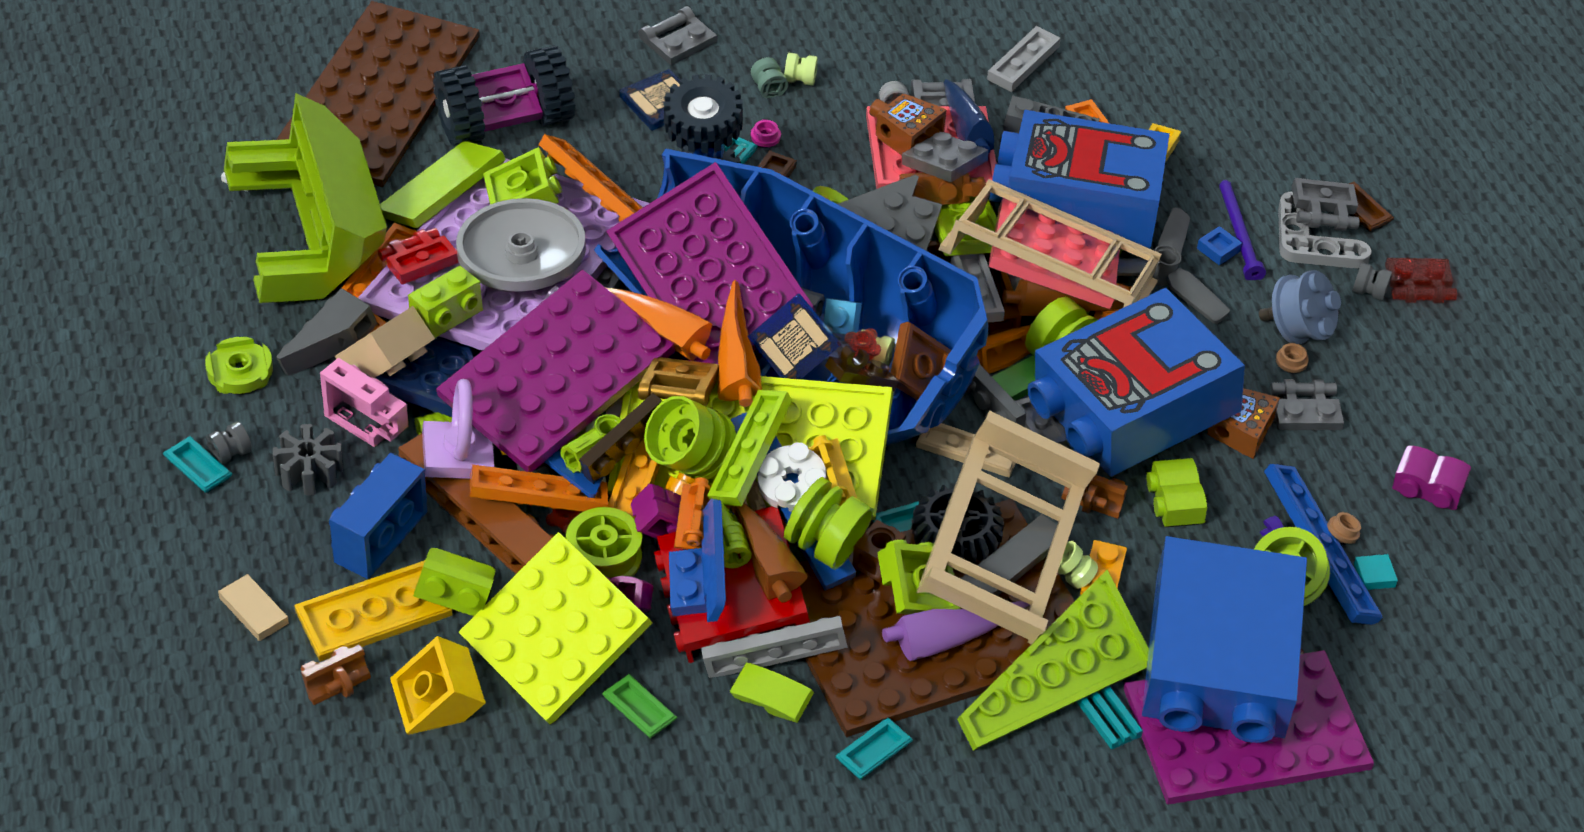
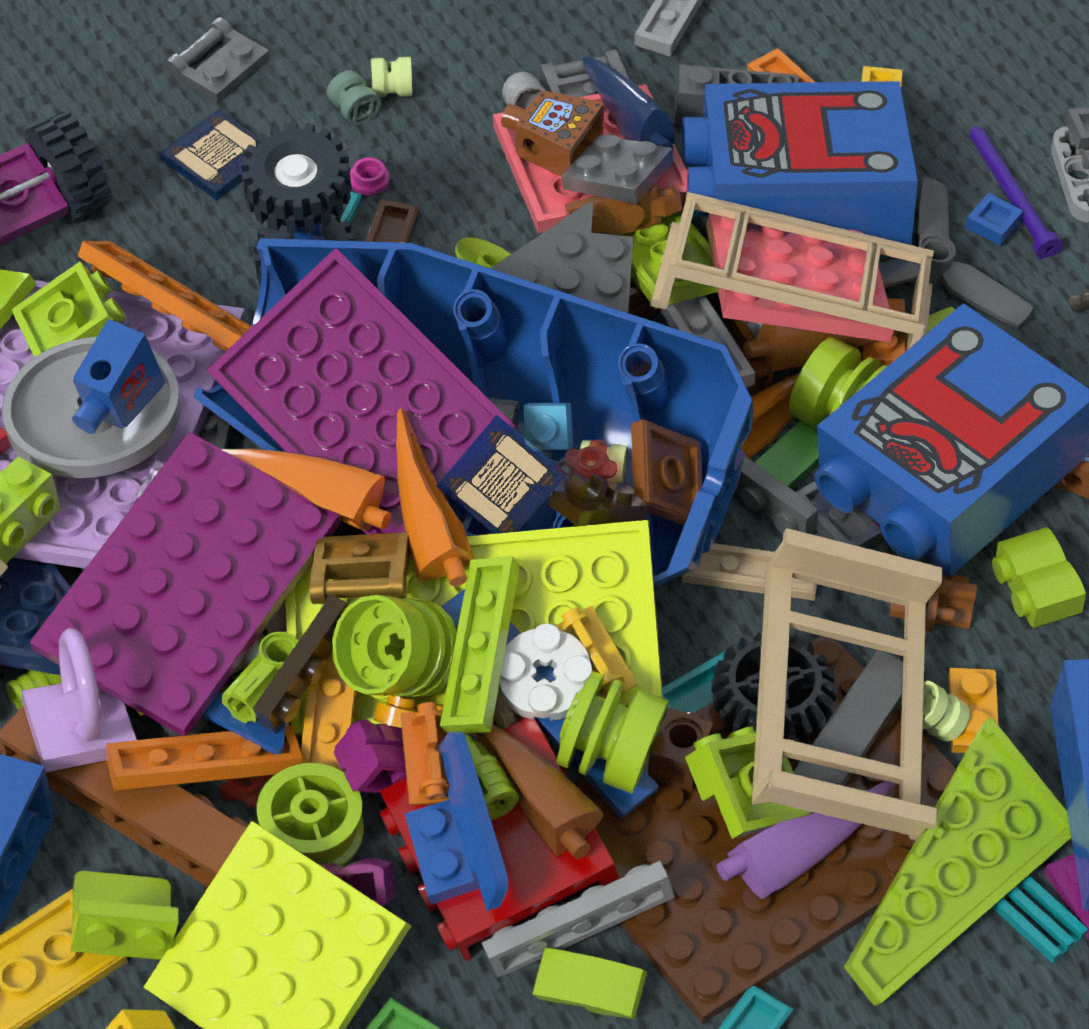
camera: 10 degrees left, 5 degrees up
(541, 224) = (116, 378): none -> blue torso

